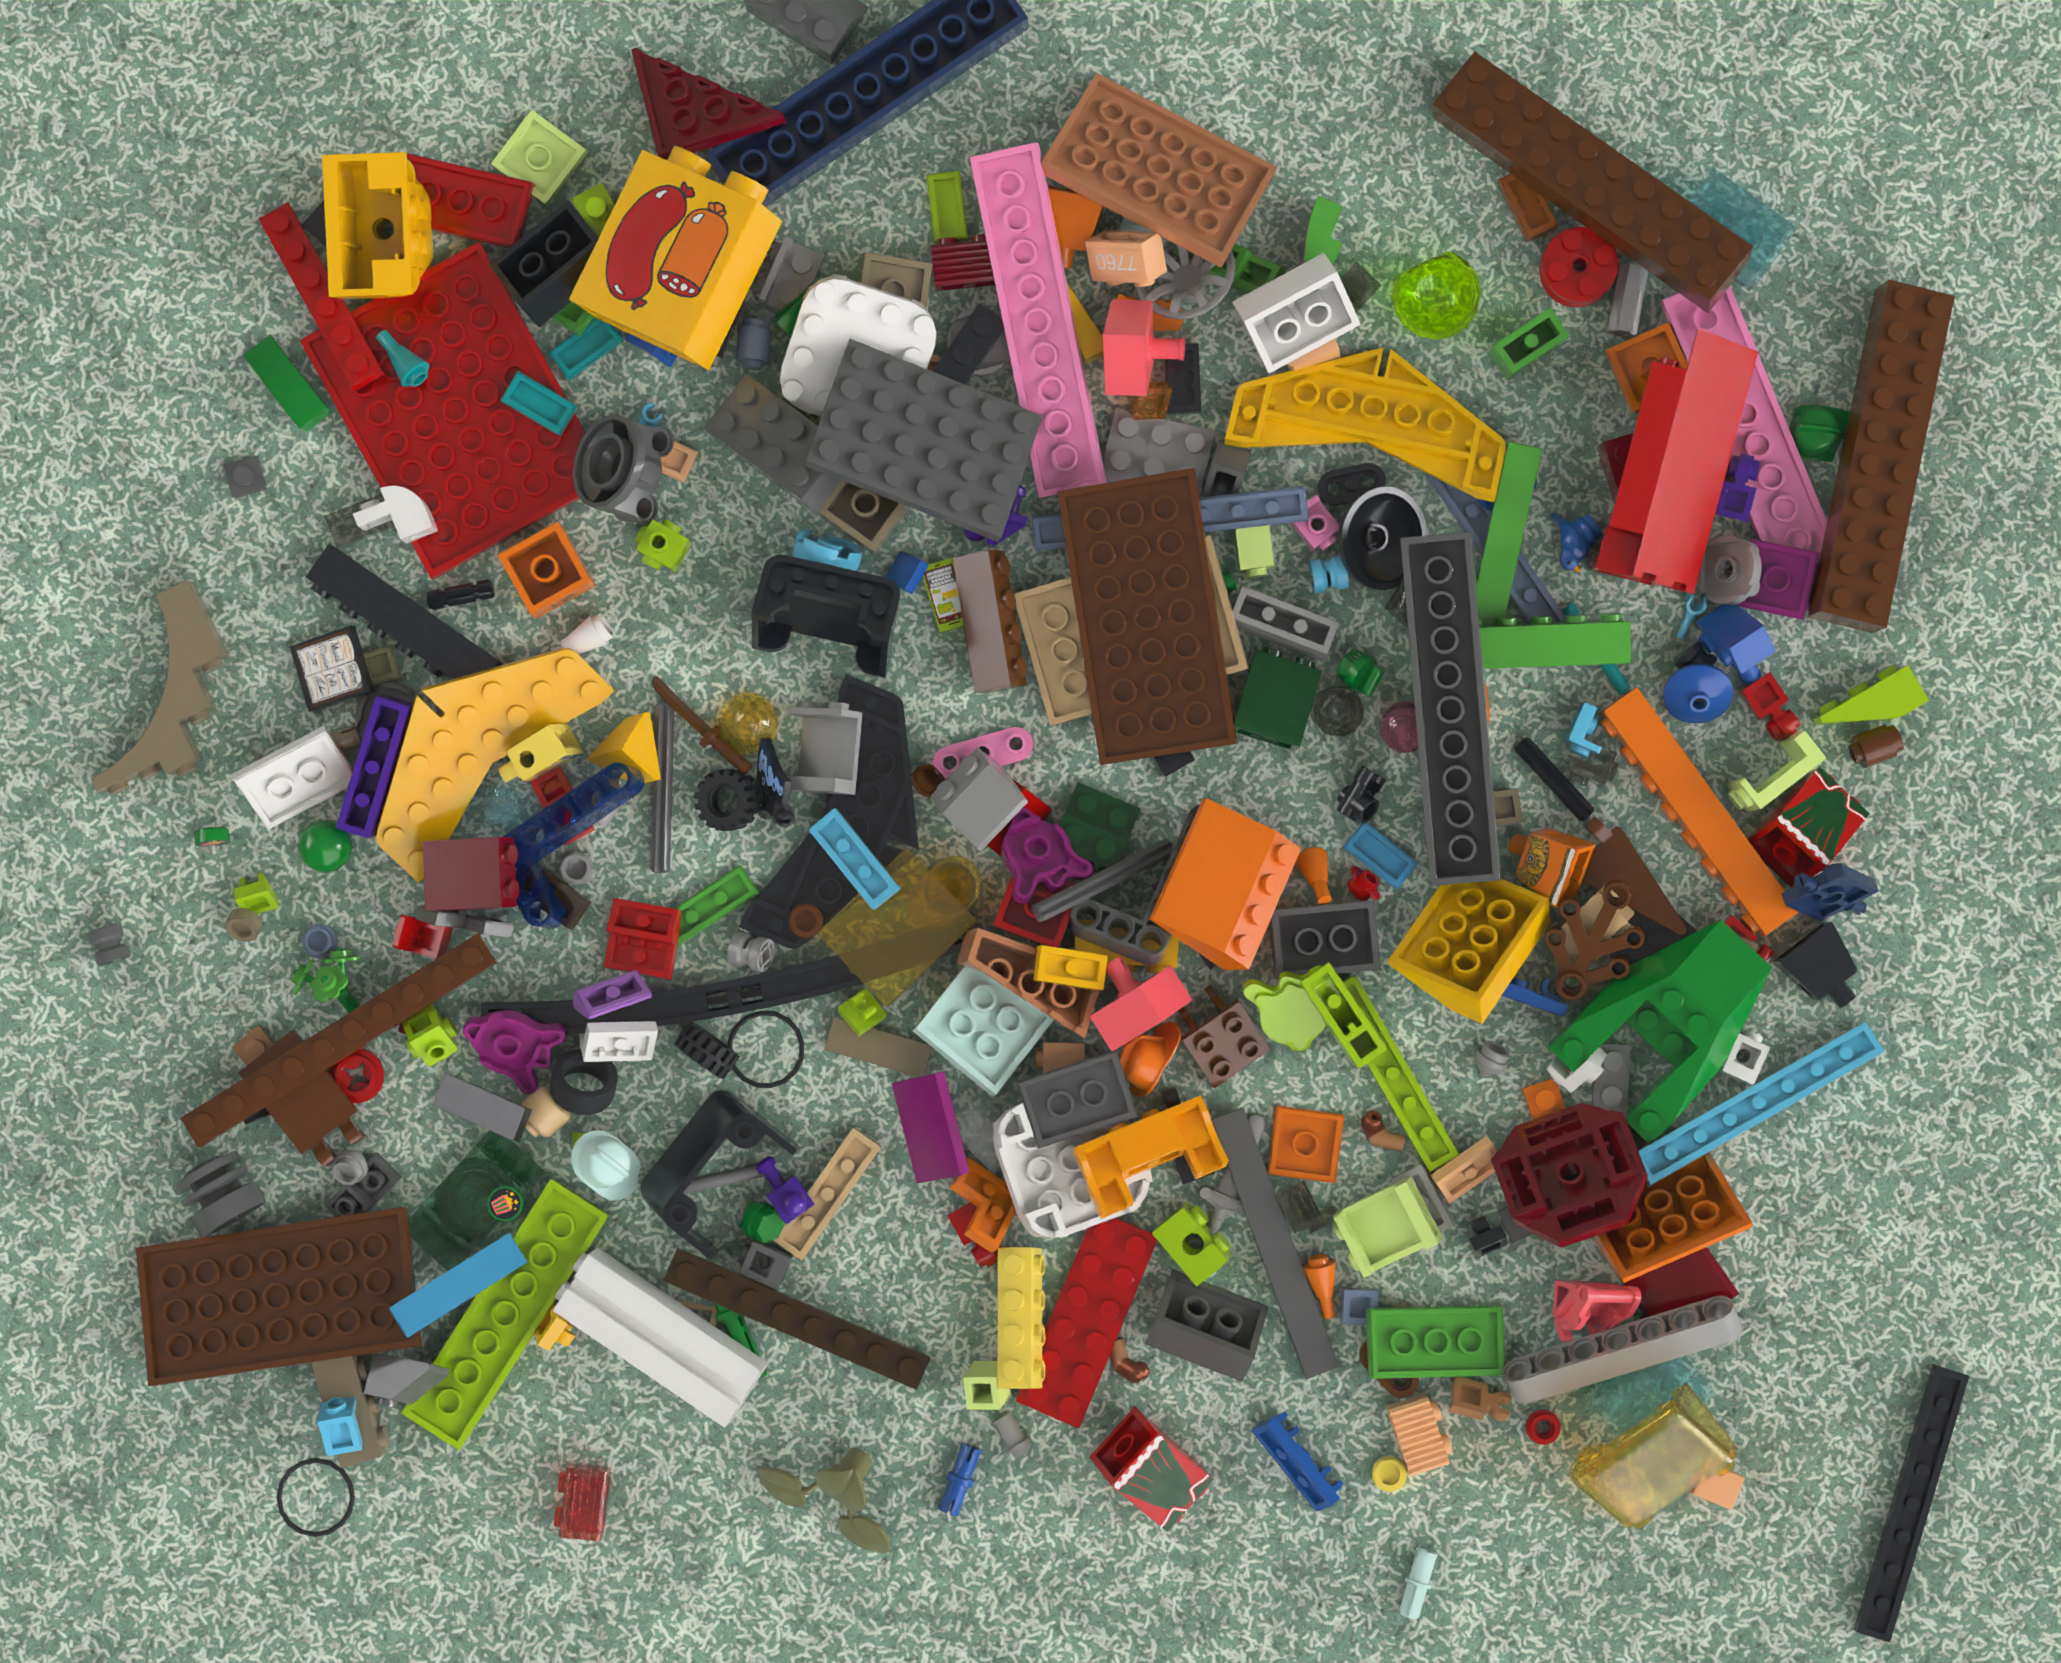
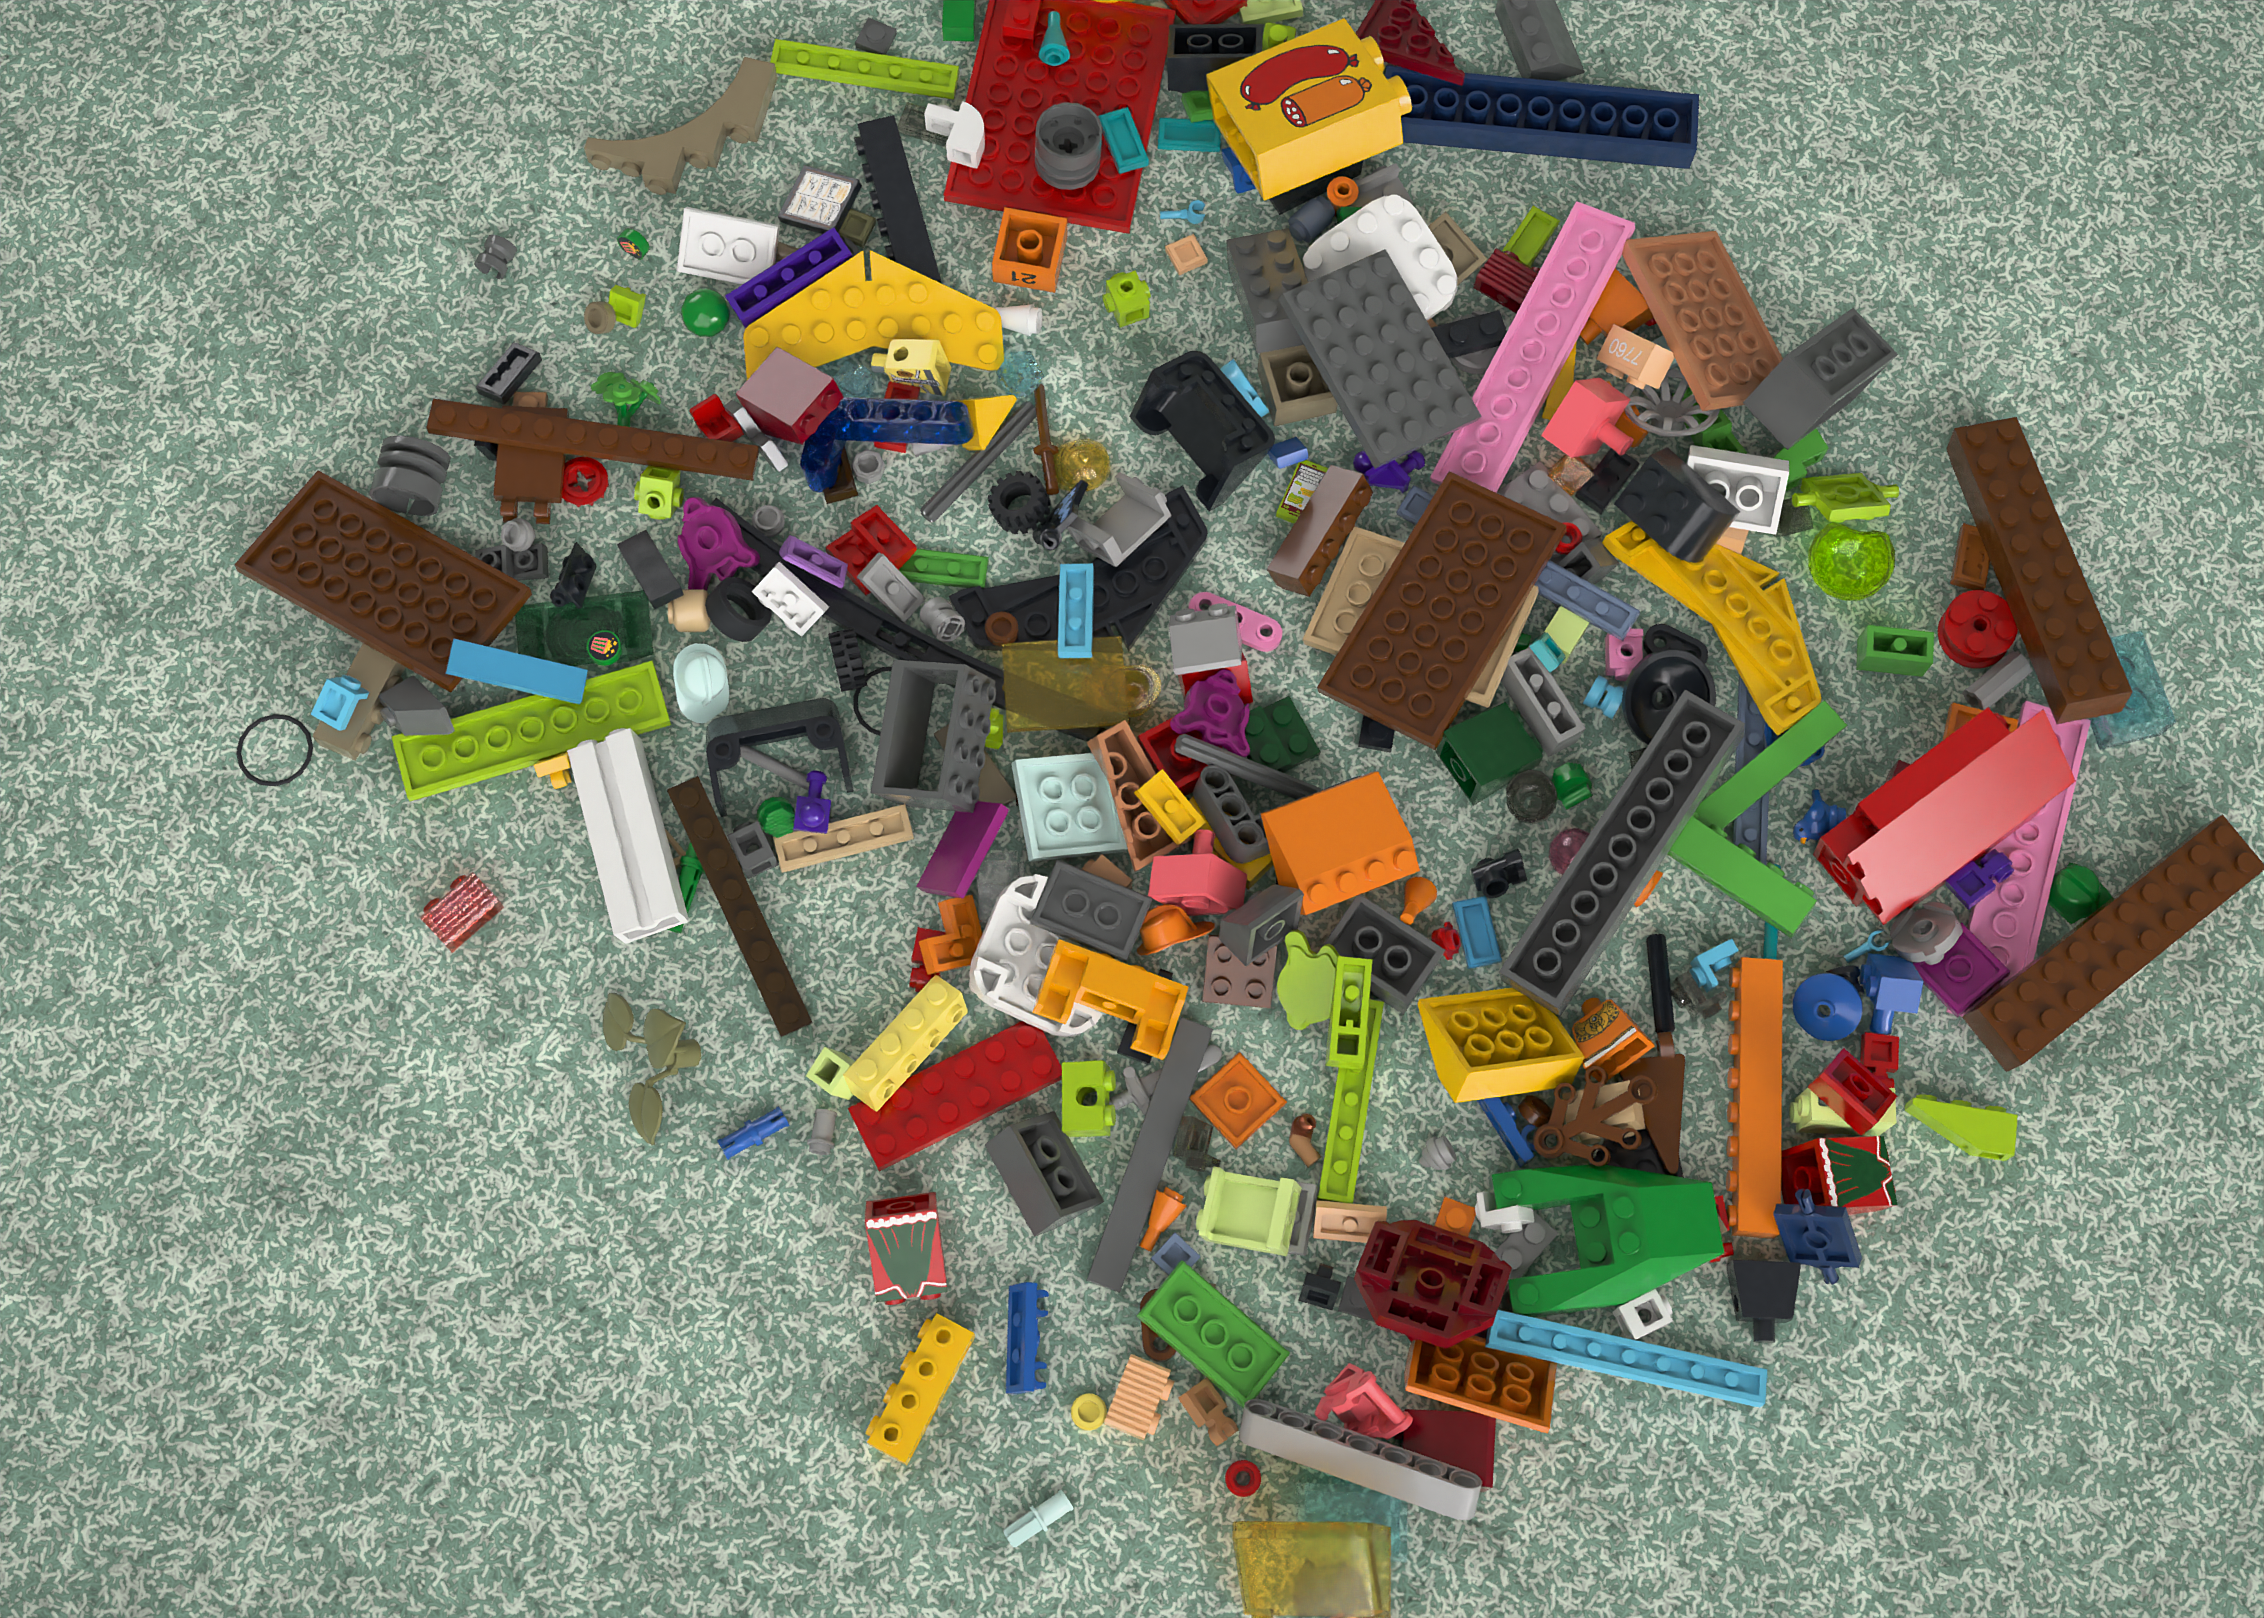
camera: 35 degrees right, 15 degrees down
(213, 1035) = (509, 373): none -> black plate
(262, 515) = (865, 69): none -> lime plate
(319, 940) = (641, 369): sand blue plate -> none
(426, 1159) = (574, 578): none -> black hinge
(460, 594) = (954, 224): black axle -> none
(491, 440) = (1068, 145): none -> dark grey wheel
(536, 982) = (768, 520): none -> light grey plate
(621, 467) = (1145, 222): dark grey piece -> none
(632, 687) = (1020, 374): none -> clear light blue plate
(688, 960) = (891, 587): none -> light grey plate
(767, 307) = (1342, 192): none -> orange cone
(811, 1080) = (906, 730): none -> dark grey hose
(926, 780) = (1176, 601): reddish brown plate -> none
(1125, 1366) = (954, 1152): copper arm -> none
(1194, 454) = (1575, 537): none -> red plate
(1216, 1000) = (1261, 922): none -> dark grey slope
(1253, 1564) = (921, 1388): none -> yellow brick
(1257, 581) = (1547, 651): none -> teal tile
(1265, 371) = (1676, 506): none -> black brick
(1295, 157) = (1819, 378): none -> dark grey hose
(1388, 238) = (1845, 497): none -> lime plate
(1507, 807) = (1605, 973): dark tan plate -> none
(1540, 965) = (1535, 1110): none -> reddish brown tile
(1778, 761) = (1853, 1092): none -> red slope
(1875, 745) = (1942, 1160): reddish brown brick -> none

